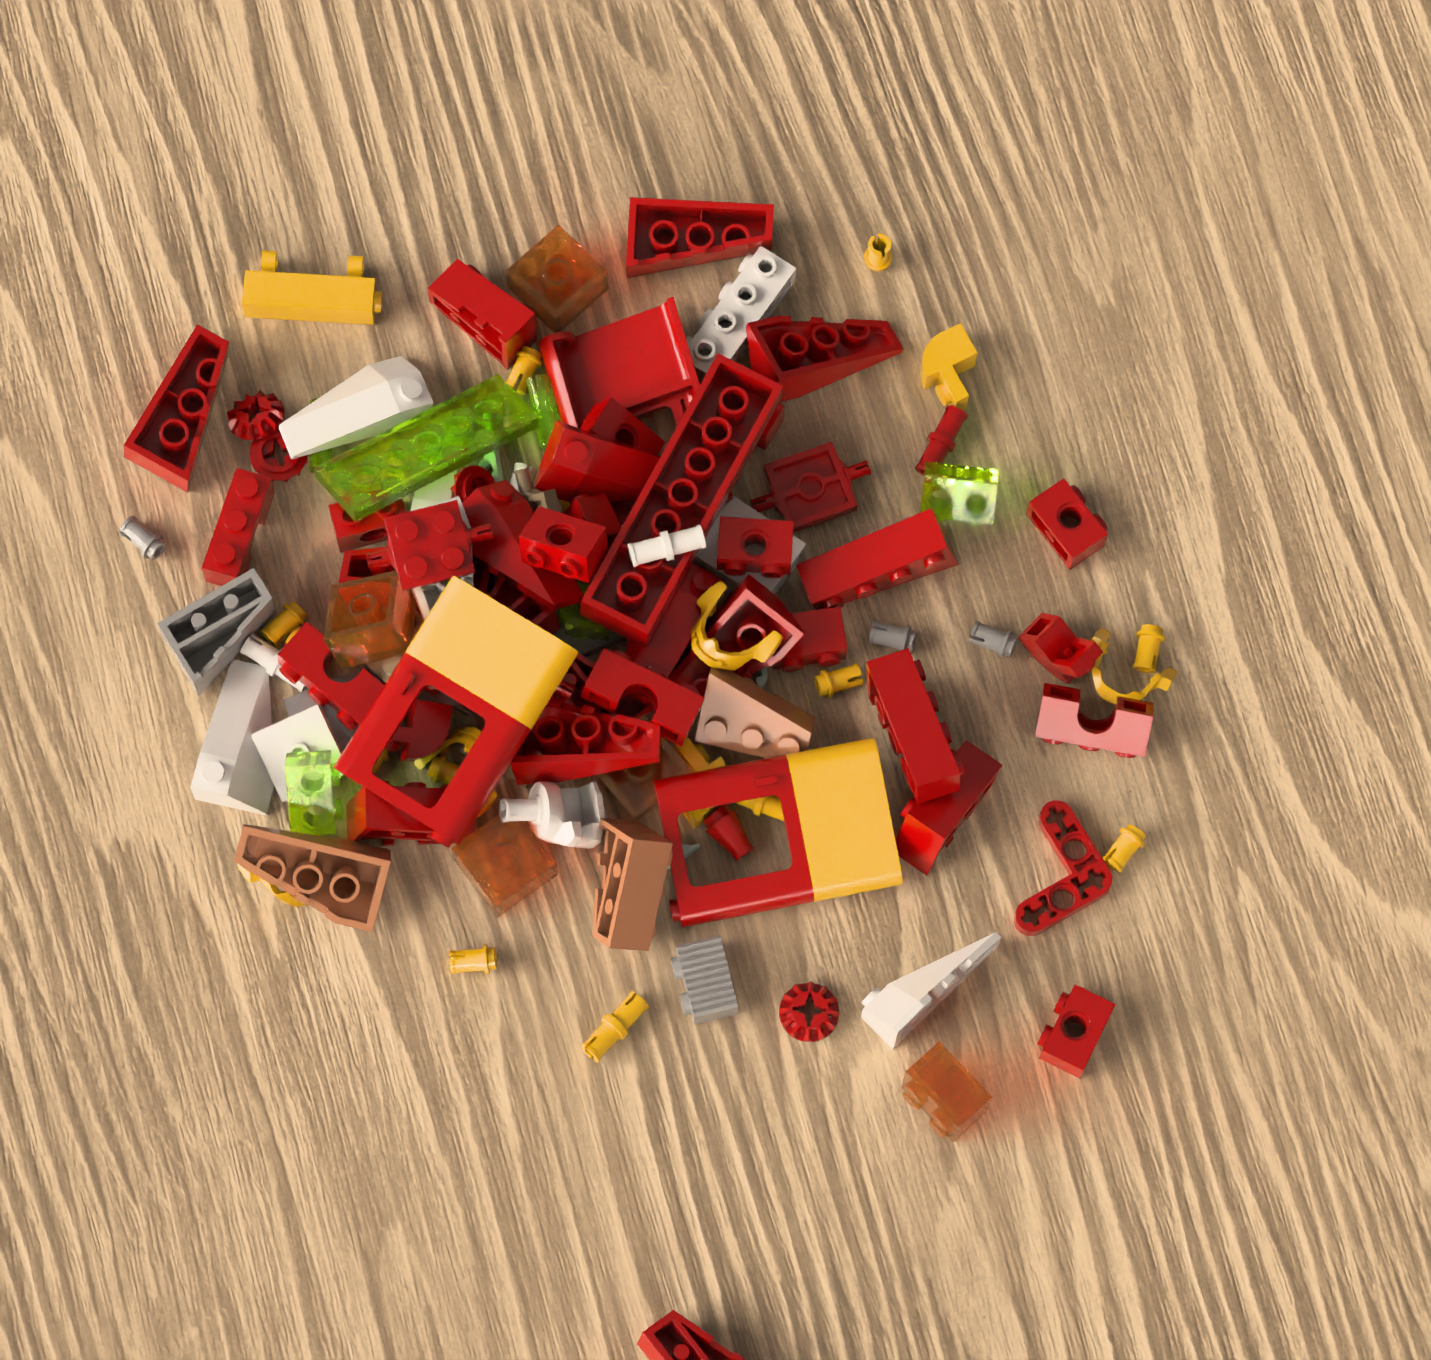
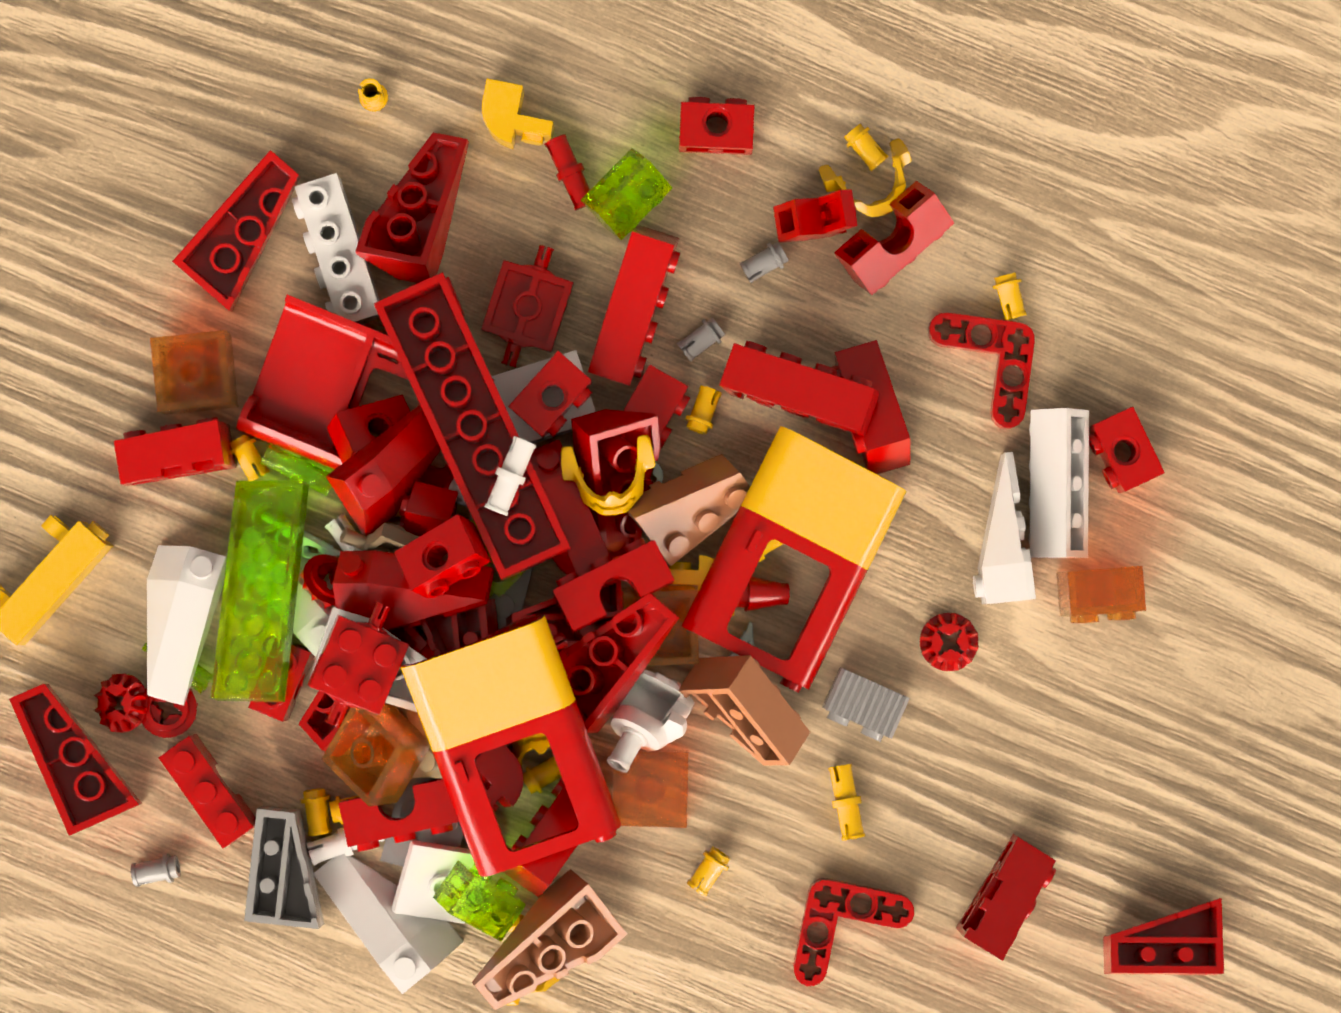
camera: 55 degrees left, 15 degrees up
(512, 1084) = (829, 915): none -> red beam
(639, 1211) = (1007, 897): none -> red wedge
(1006, 996) = (1059, 483): none -> white brick

